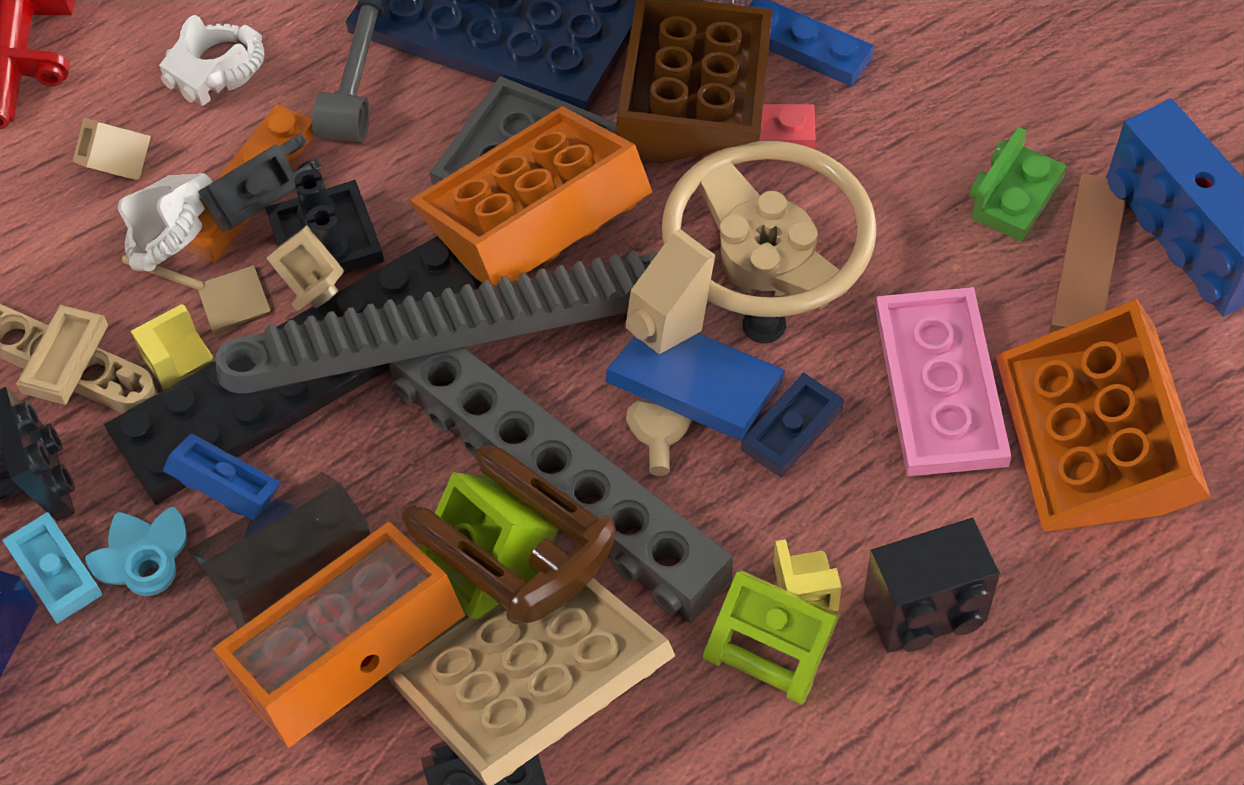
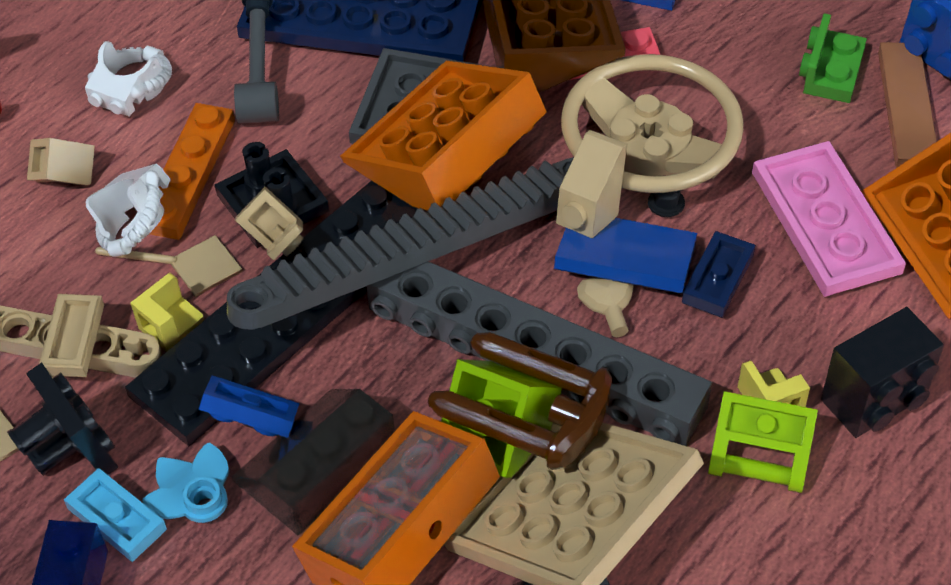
camera: 15 degrees left, 5 degrees down
(254, 184) = (202, 166): black hinge -> none

